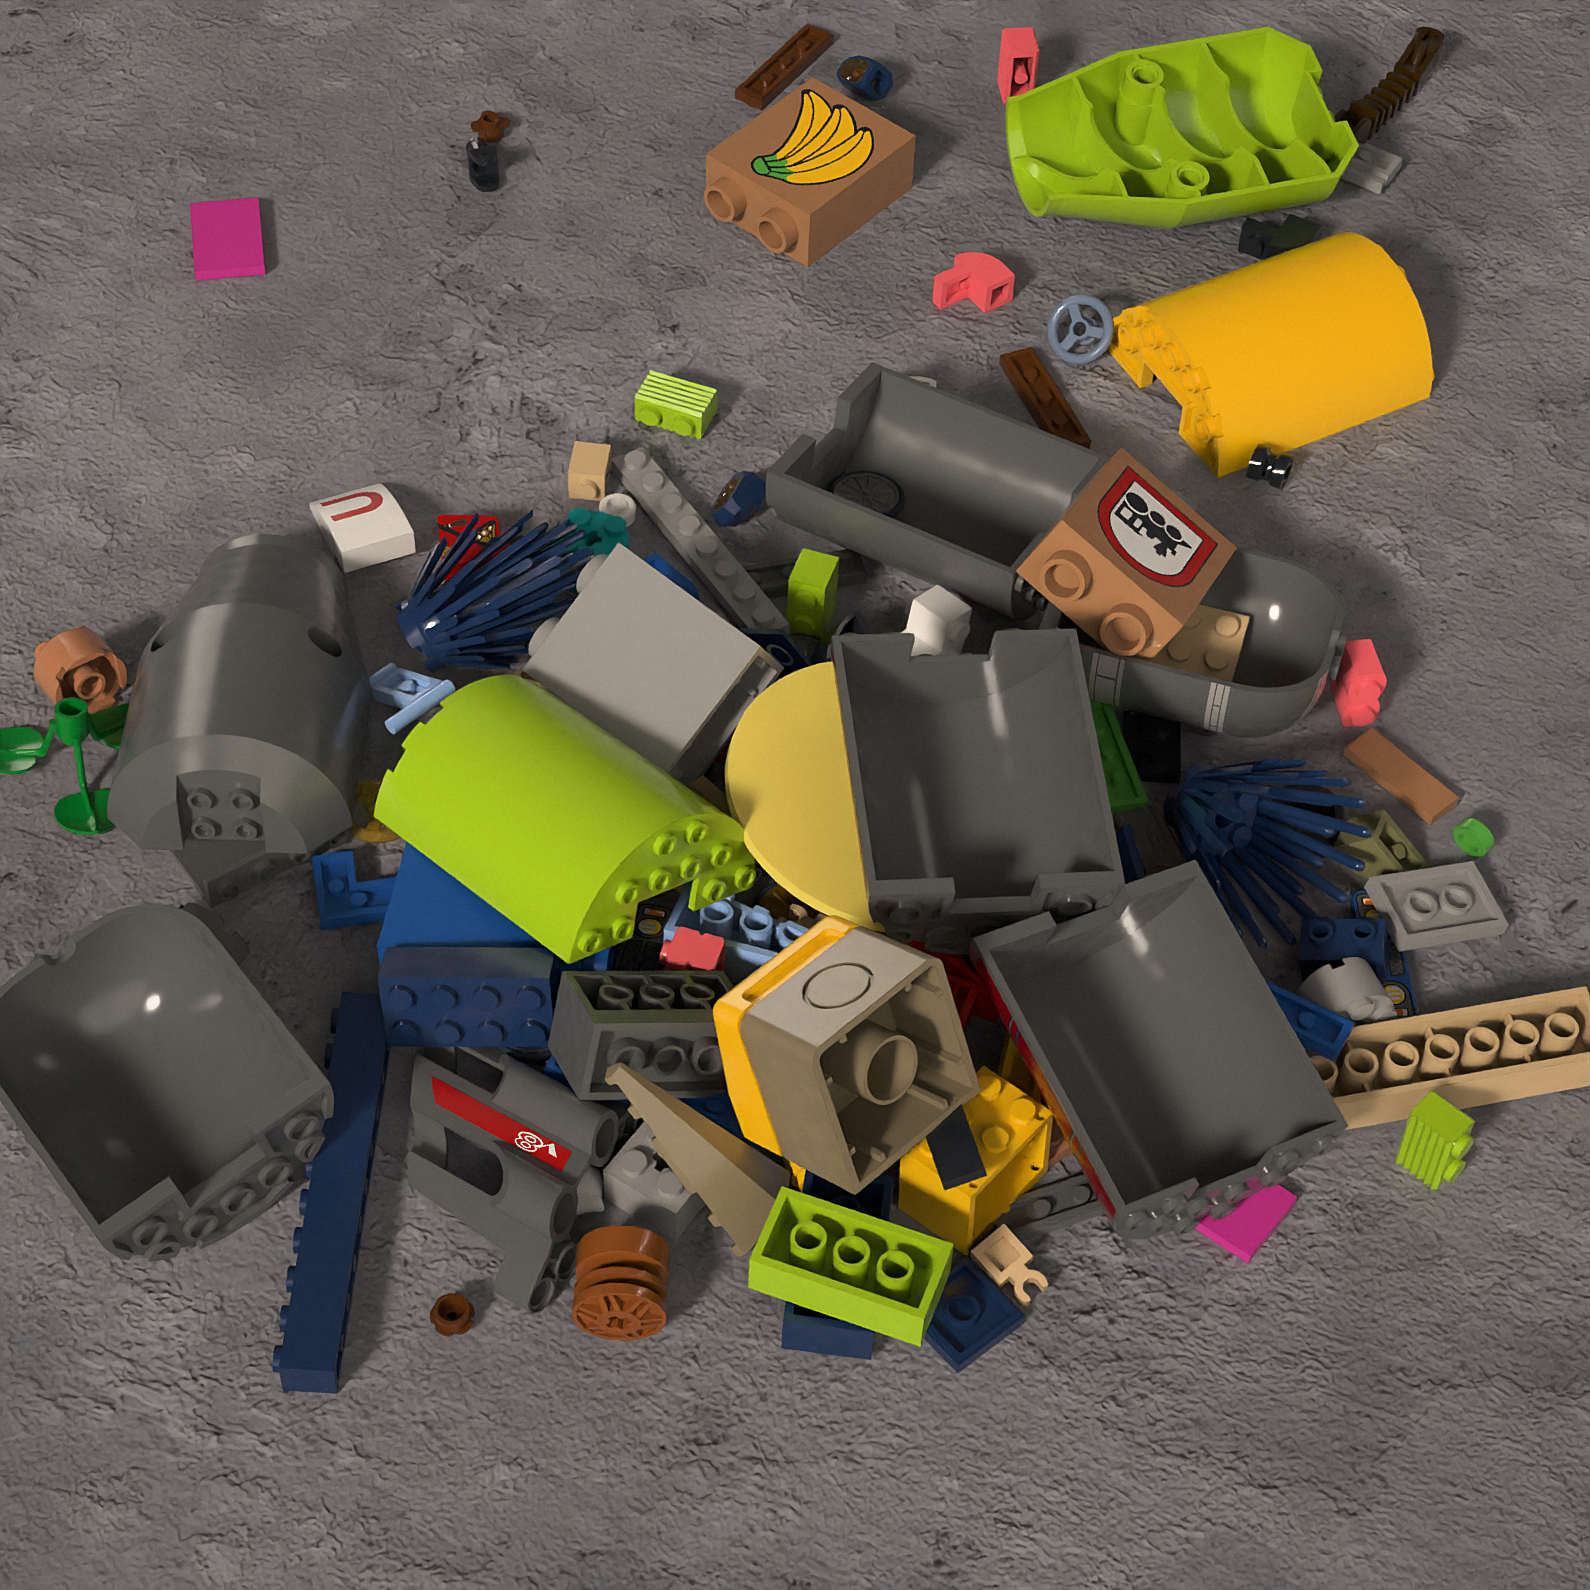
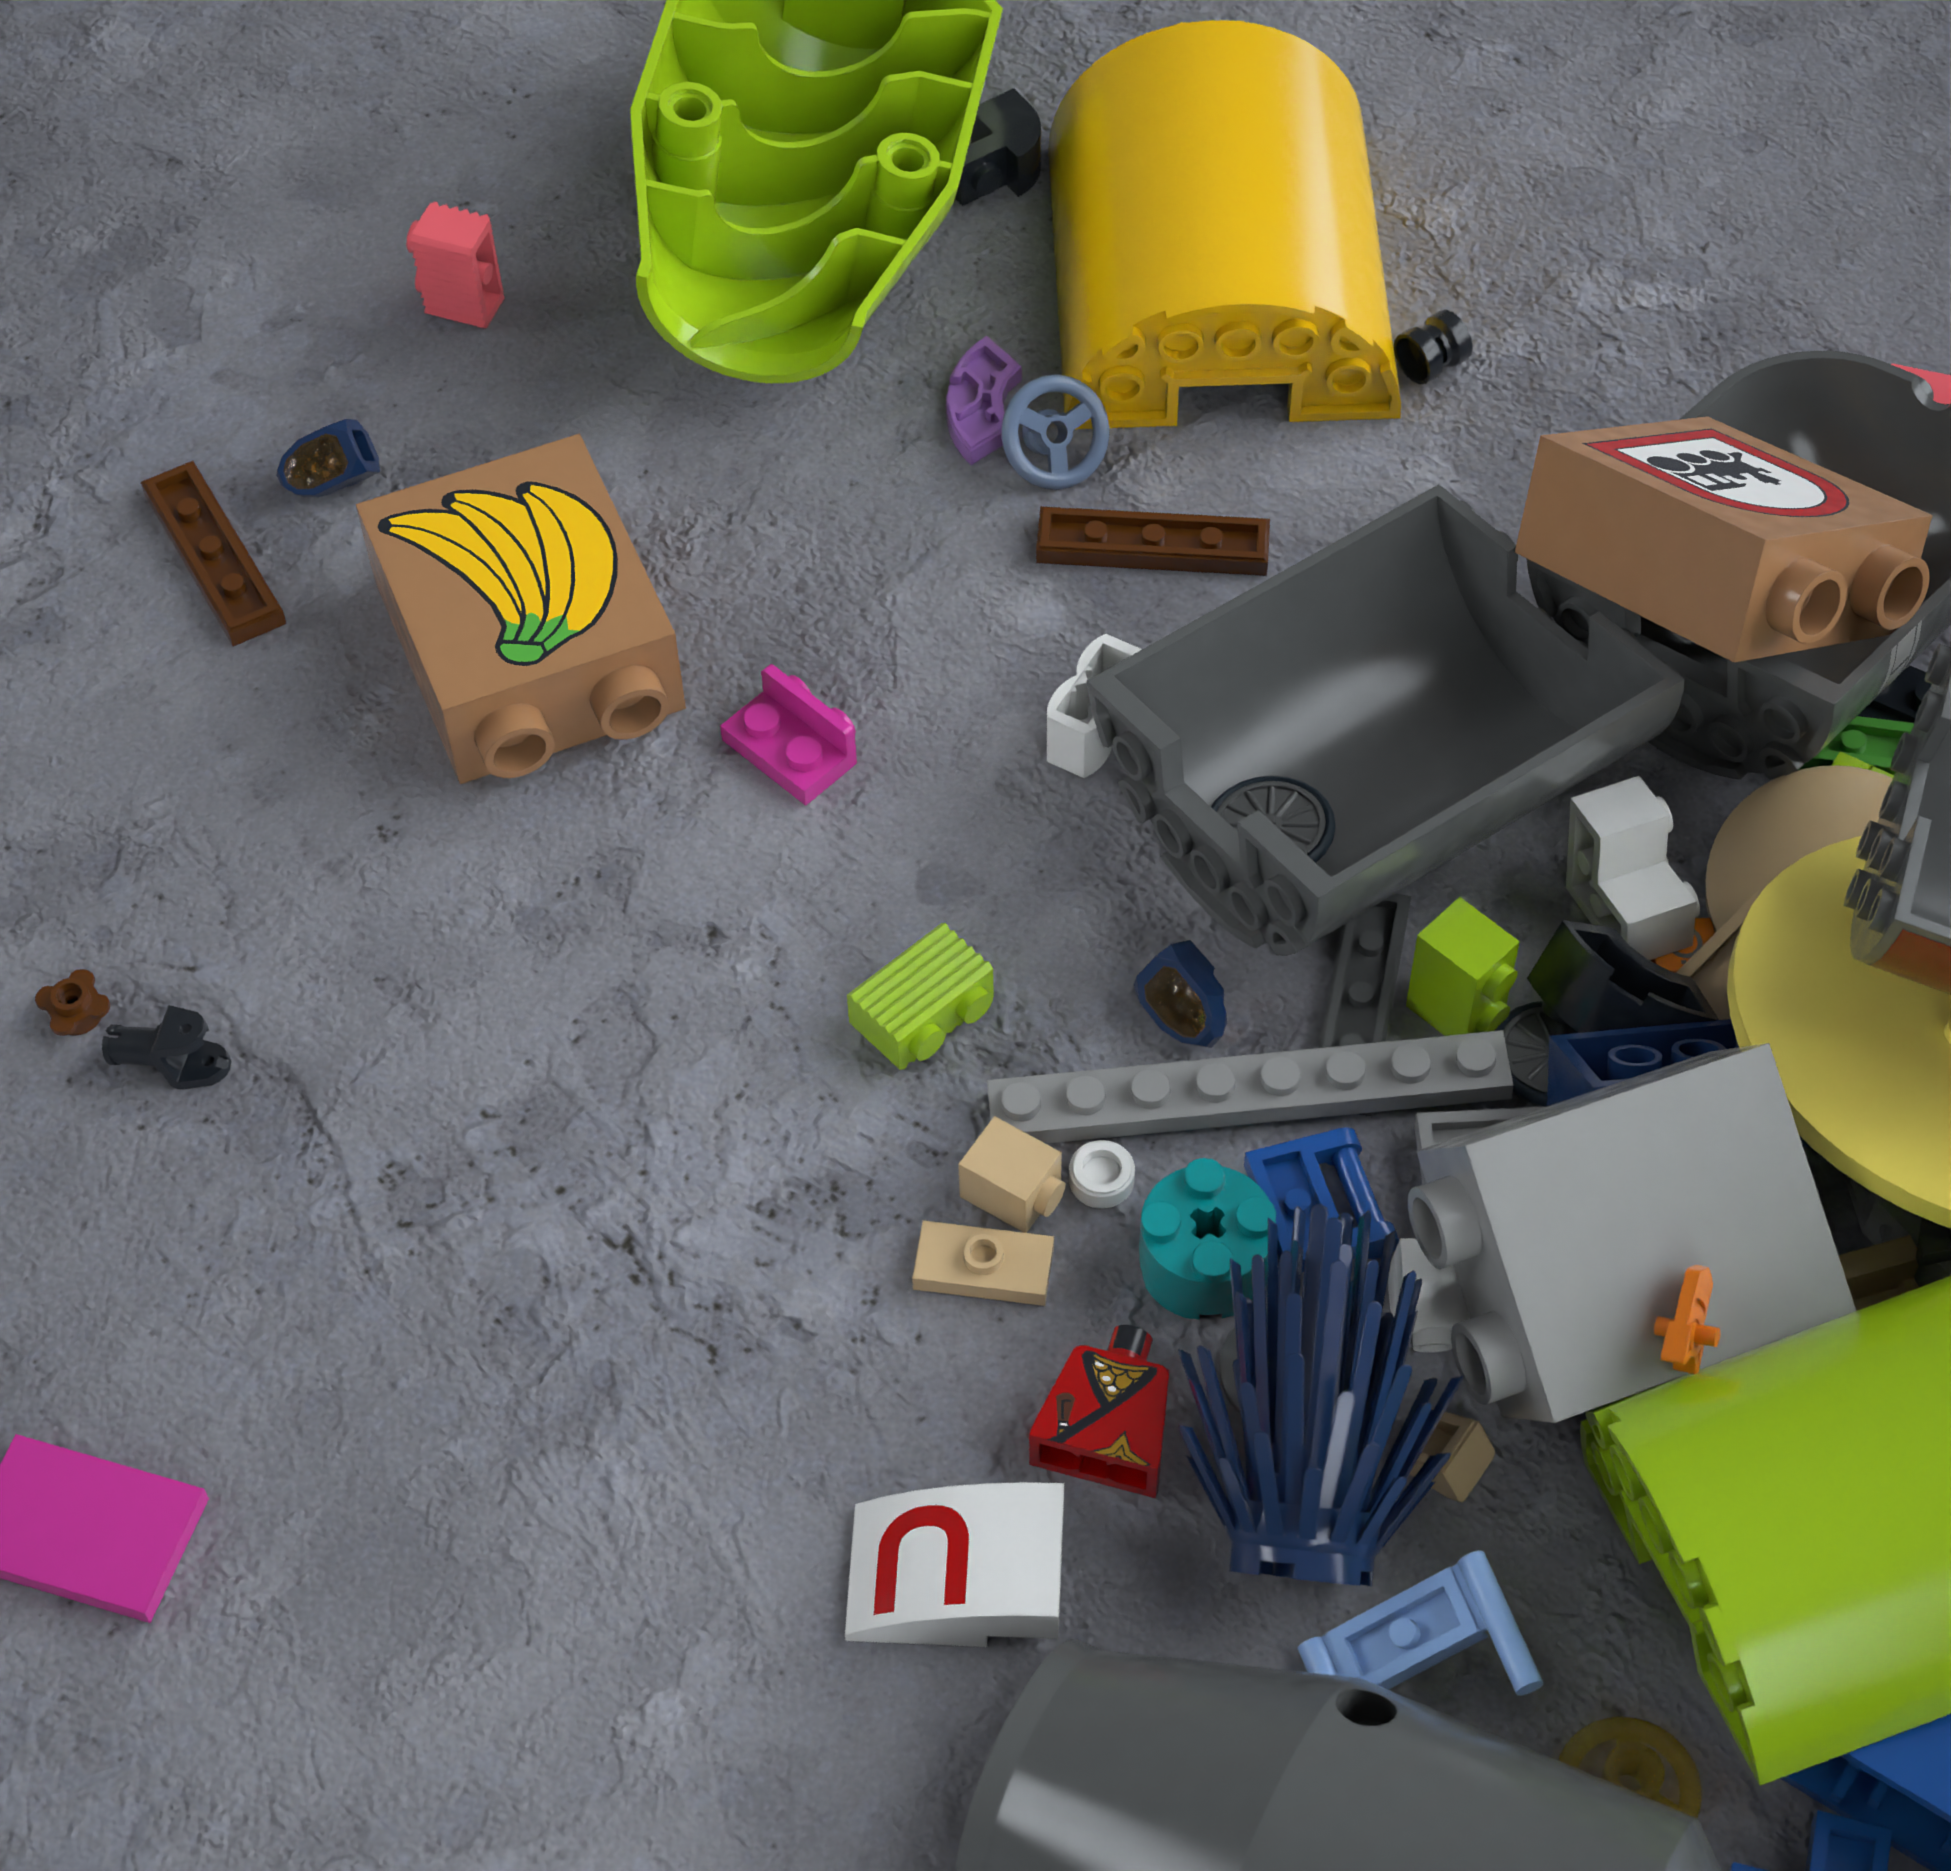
camera: 60 degrees left, 5 degrees up
(538, 483) = (983, 1263): none -> tan plate
(599, 689) = (1686, 1332): none -> orange piece
(809, 307) = (792, 736): none -> dark pink bracket
(974, 277) = (870, 505): coral brick -> none
(1114, 294) = (977, 398): none -> medium lavender tile

